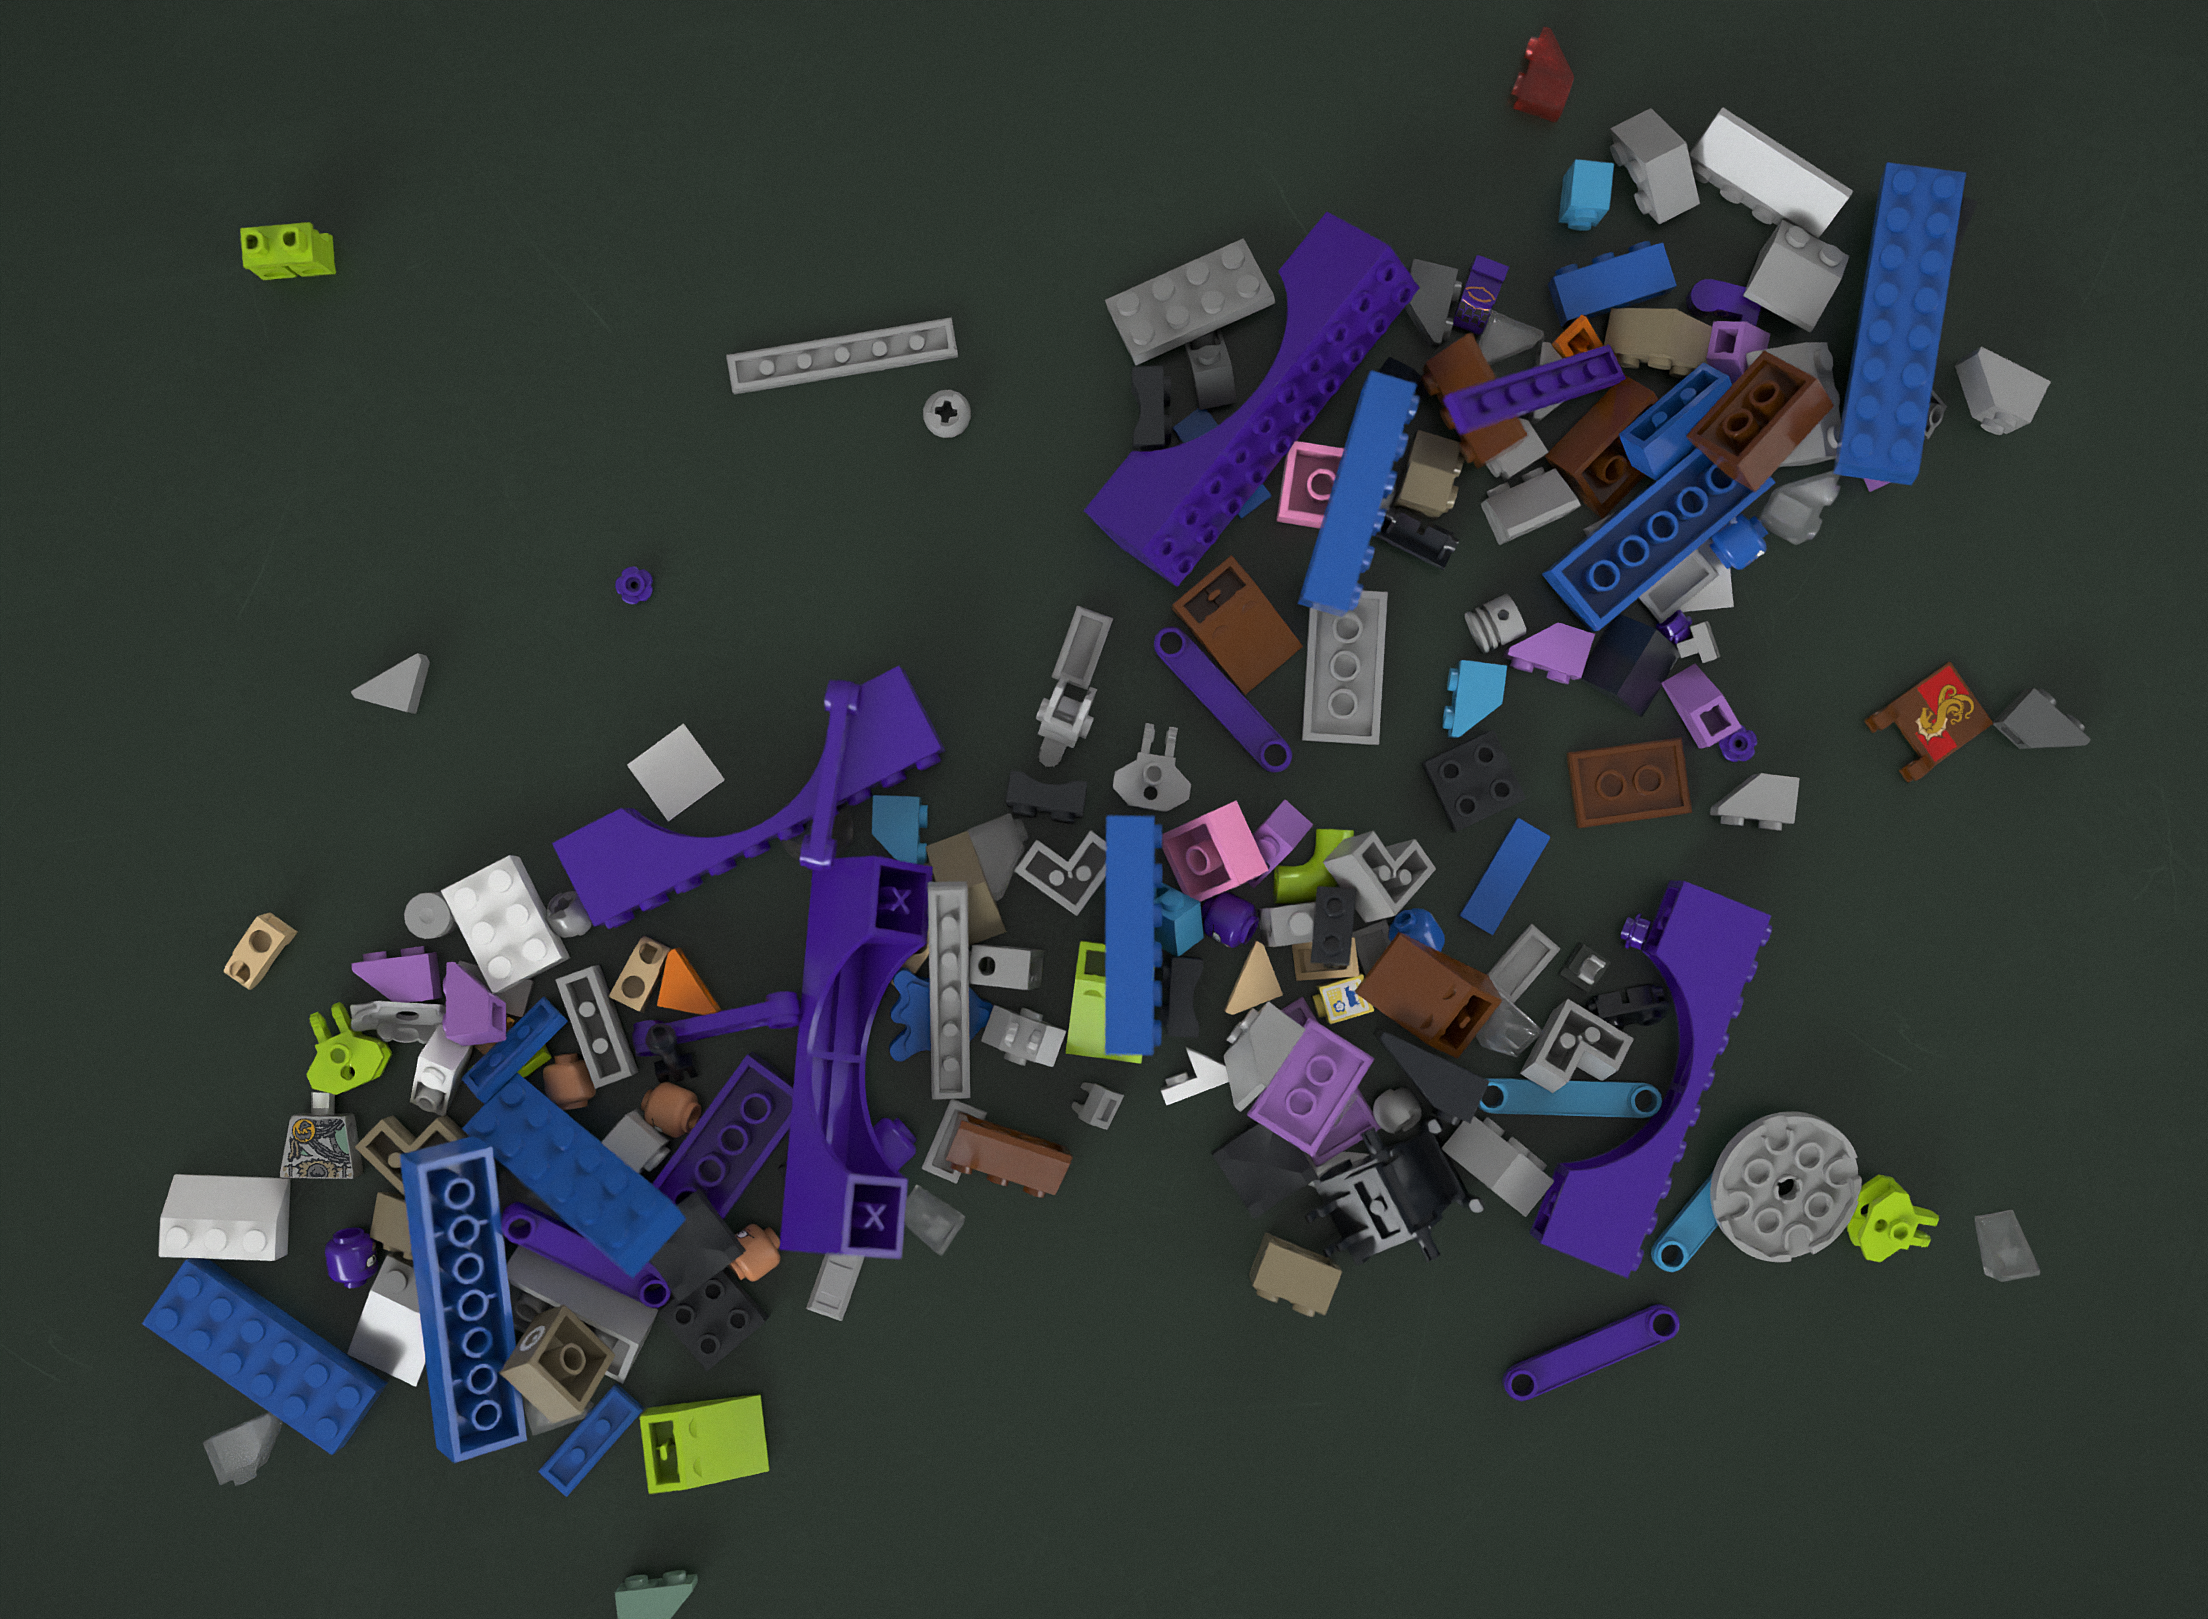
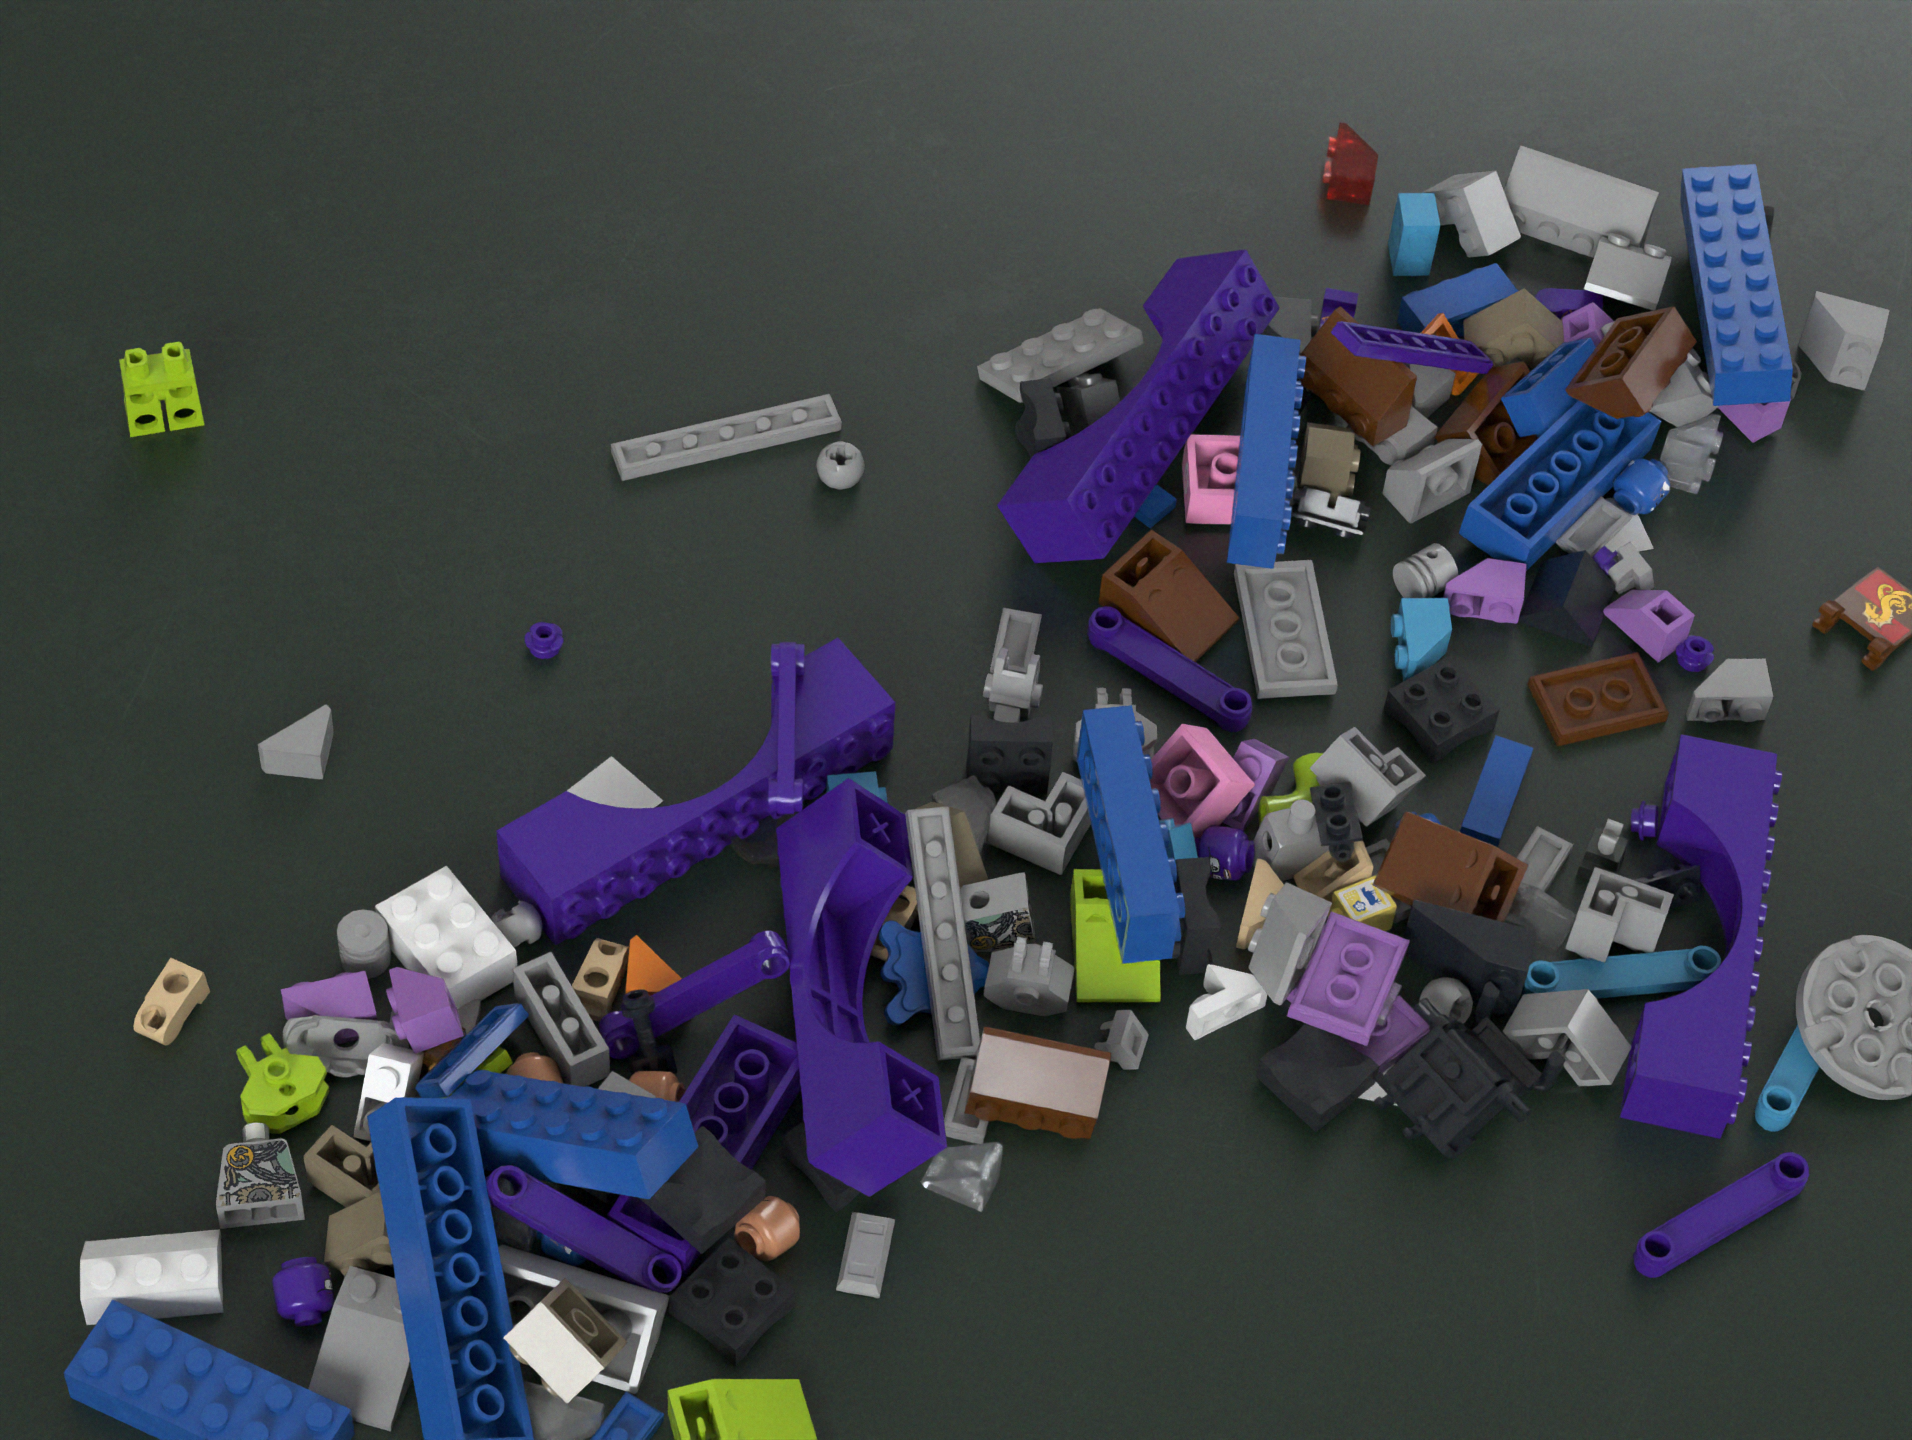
camera: 10 degrees left, 35 degrees down
(1294, 1275) = (1378, 1161): dark tan brick -> none

